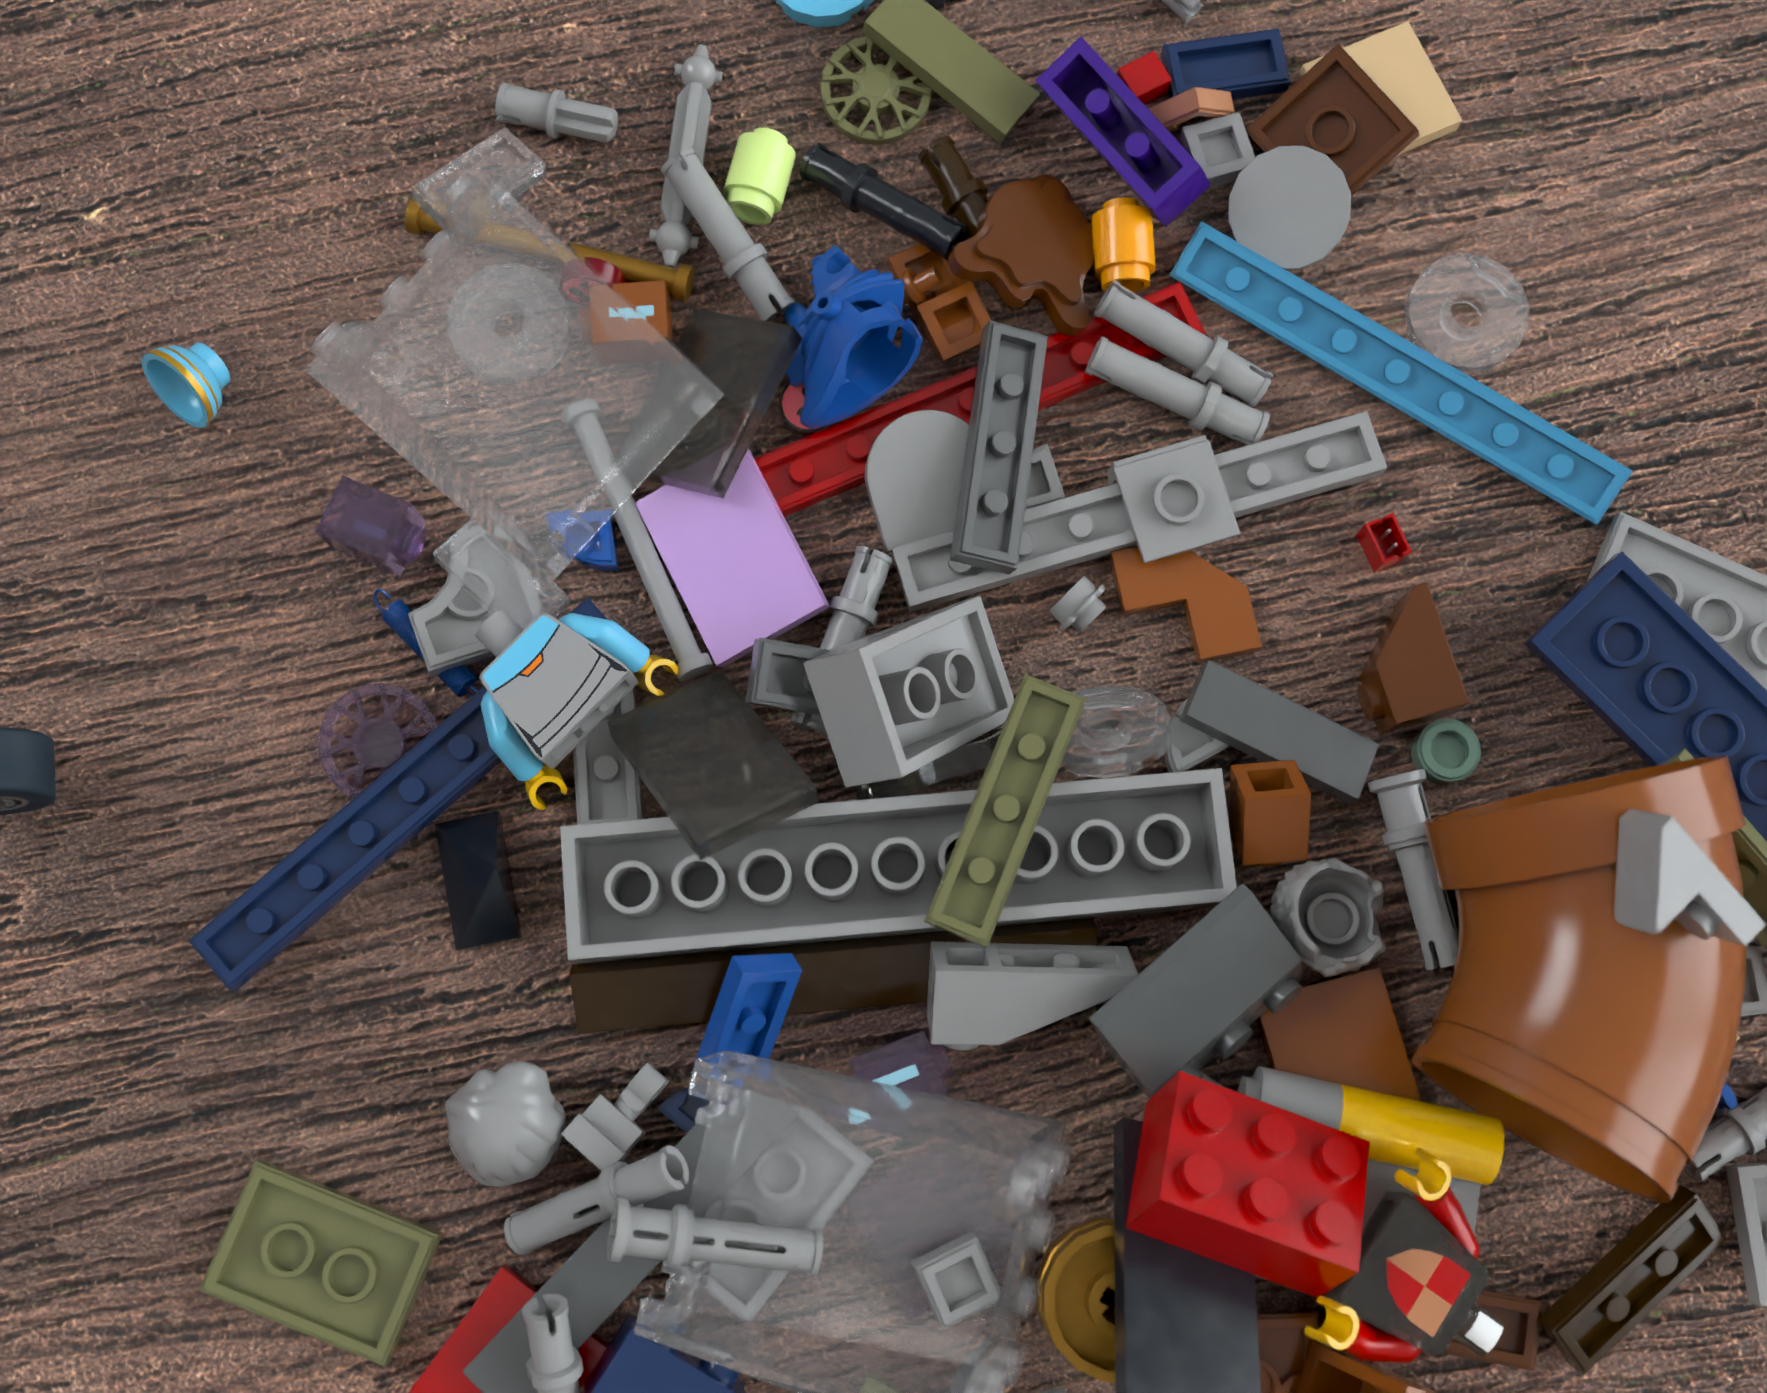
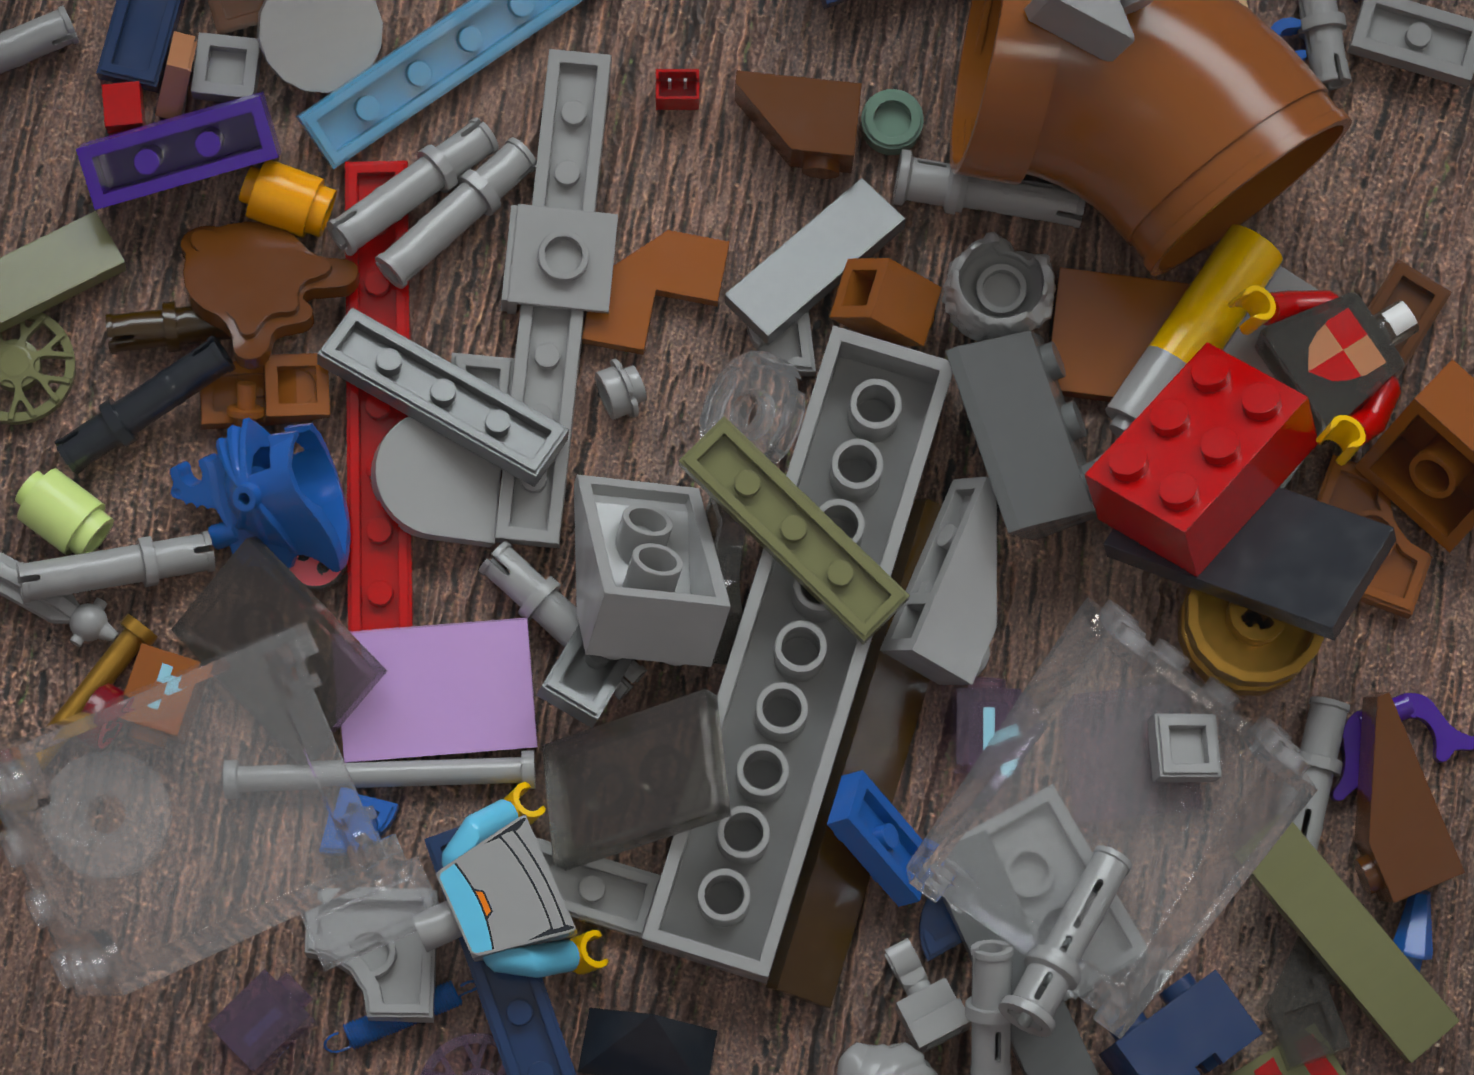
camera: 70 degrees left, 0 degrees up
(1631, 1279) = (1409, 175): dark brown tile -> none

